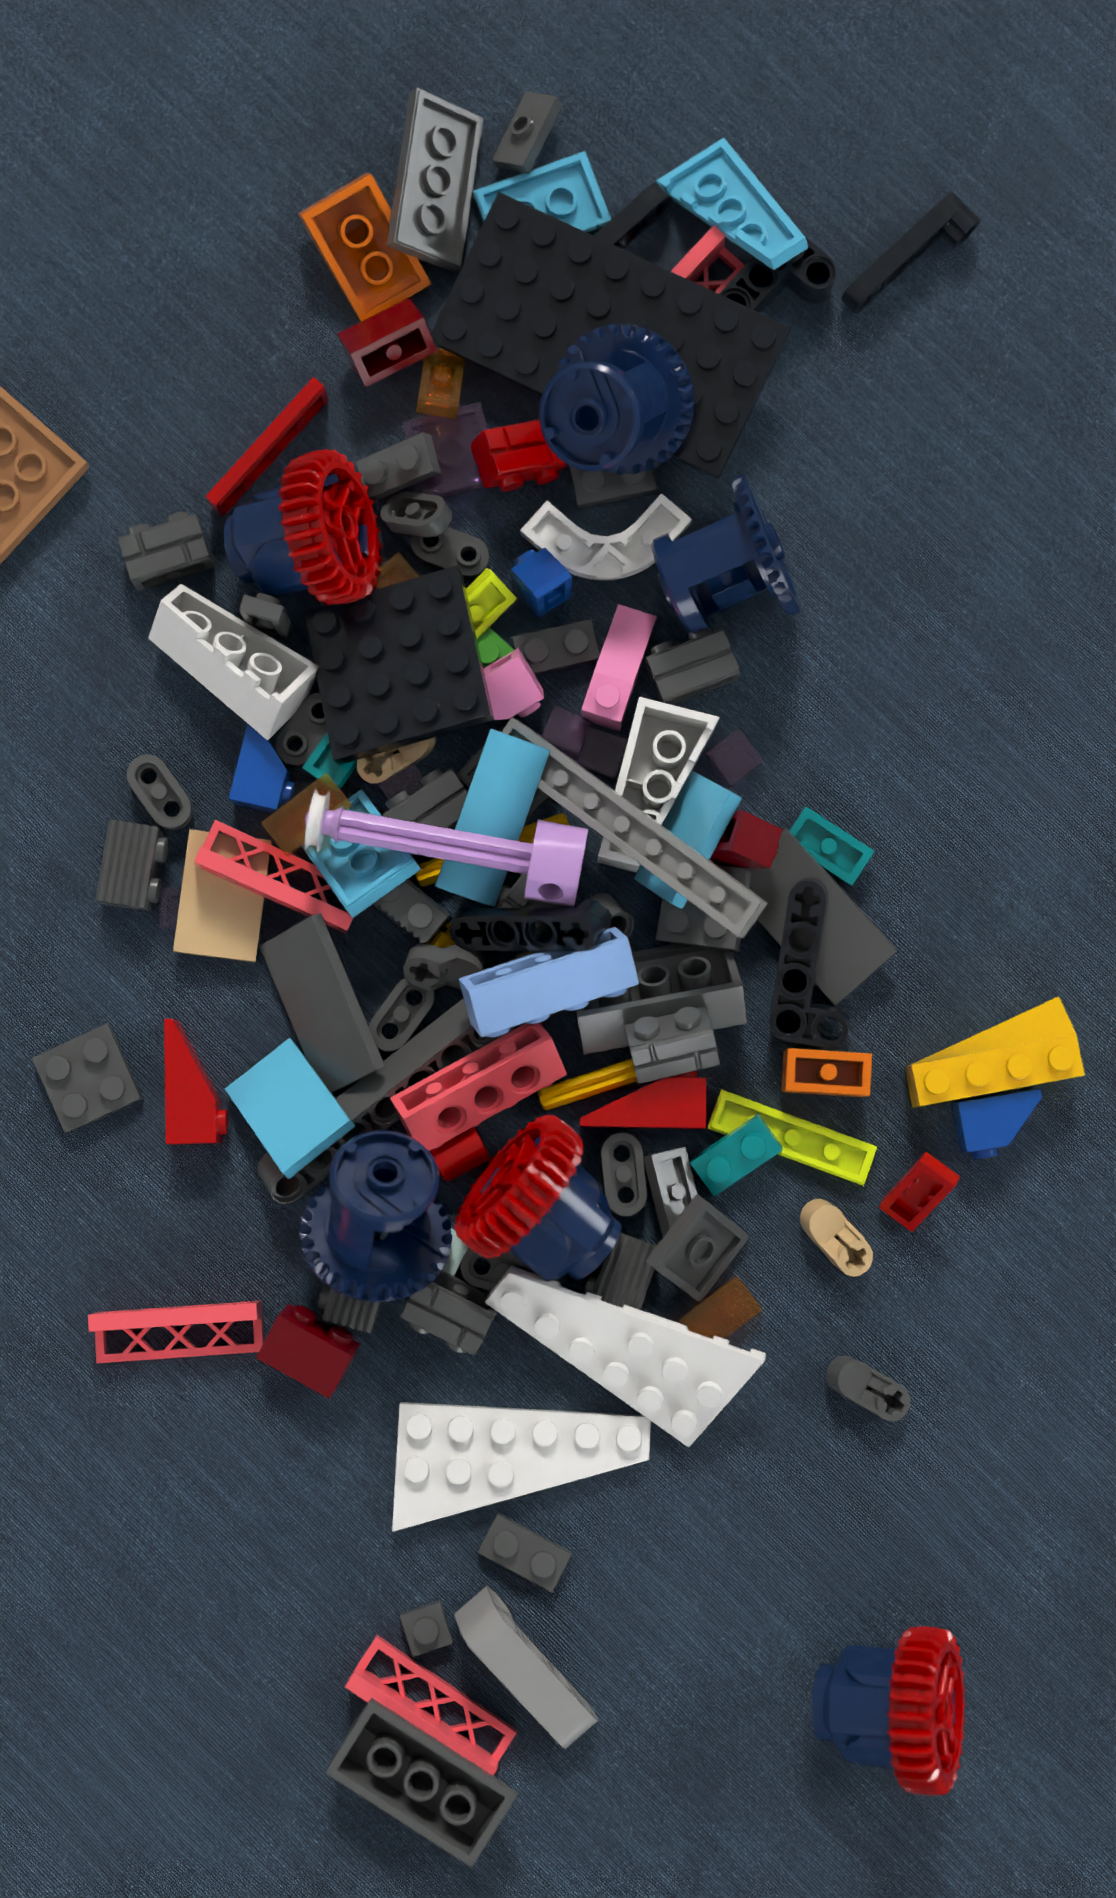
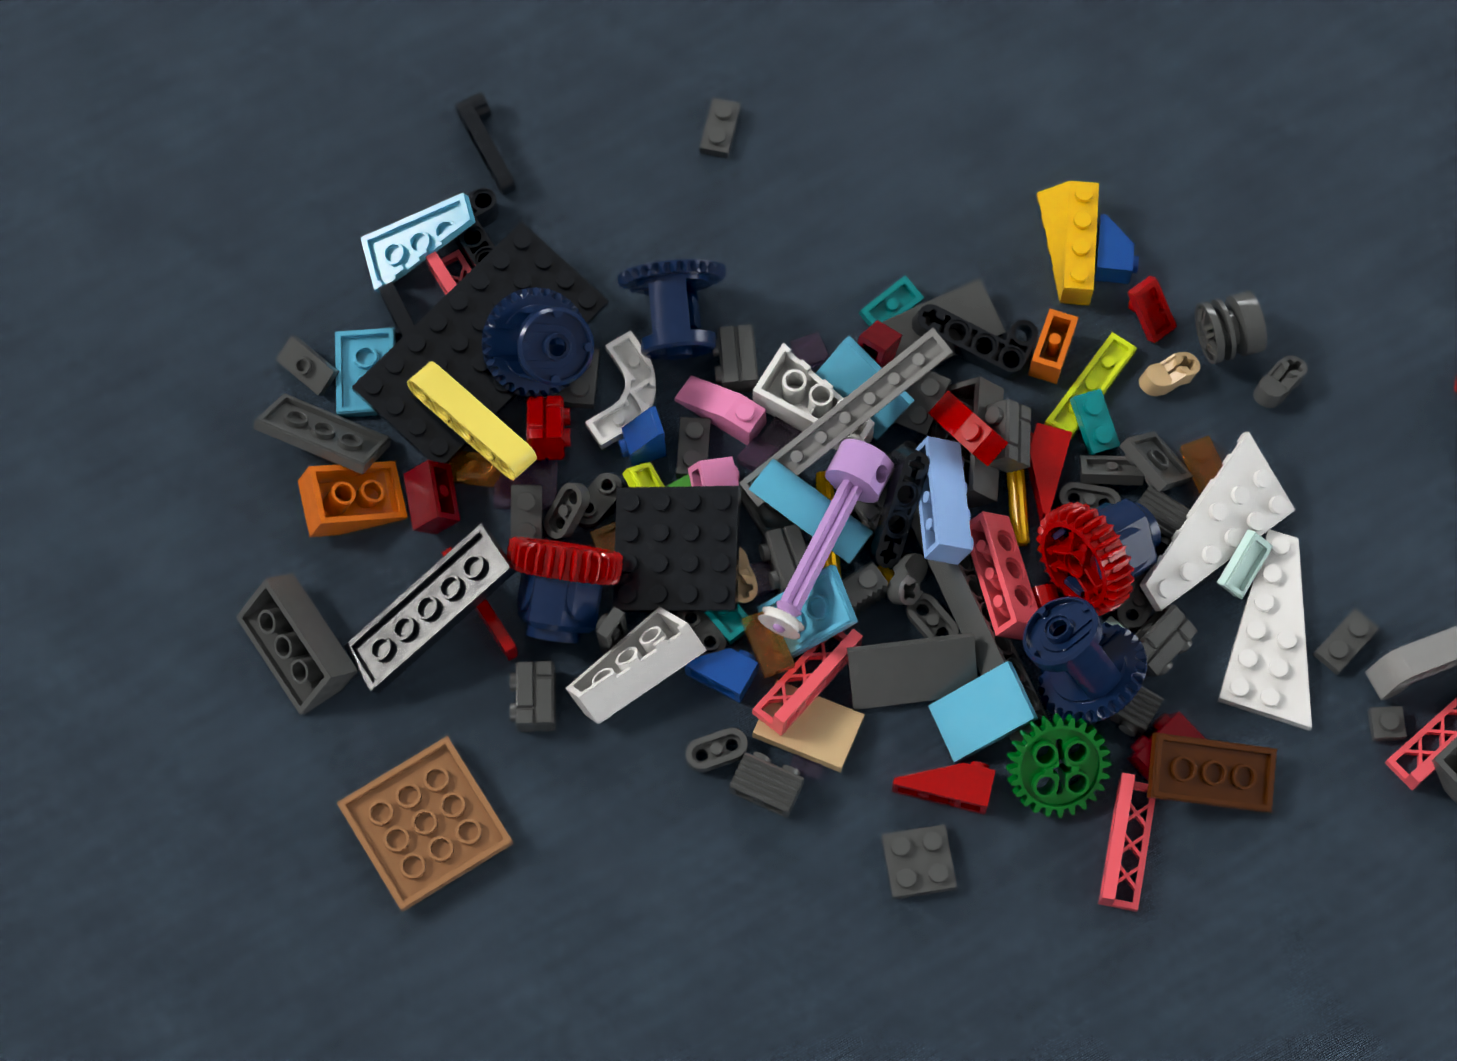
camera: 75 degrees left, 15 degrees down
(158, 244) = (296, 642): none -> dark grey slope
(228, 385) = (429, 608): none -> plate
(255, 1248) = (1086, 762): none -> green gear
(288, 1416) = (1212, 772): none -> reddish brown tile
(487, 352) = (472, 420): none -> light yellow beam
(587, 1397) = (1245, 564): none -> light aqua tile
(657, 987) = (968, 428): none -> red slope
(923, 1308) = (1231, 327): none -> dark grey wheel
(1028, 549) = (720, 128): none -> dark grey plate

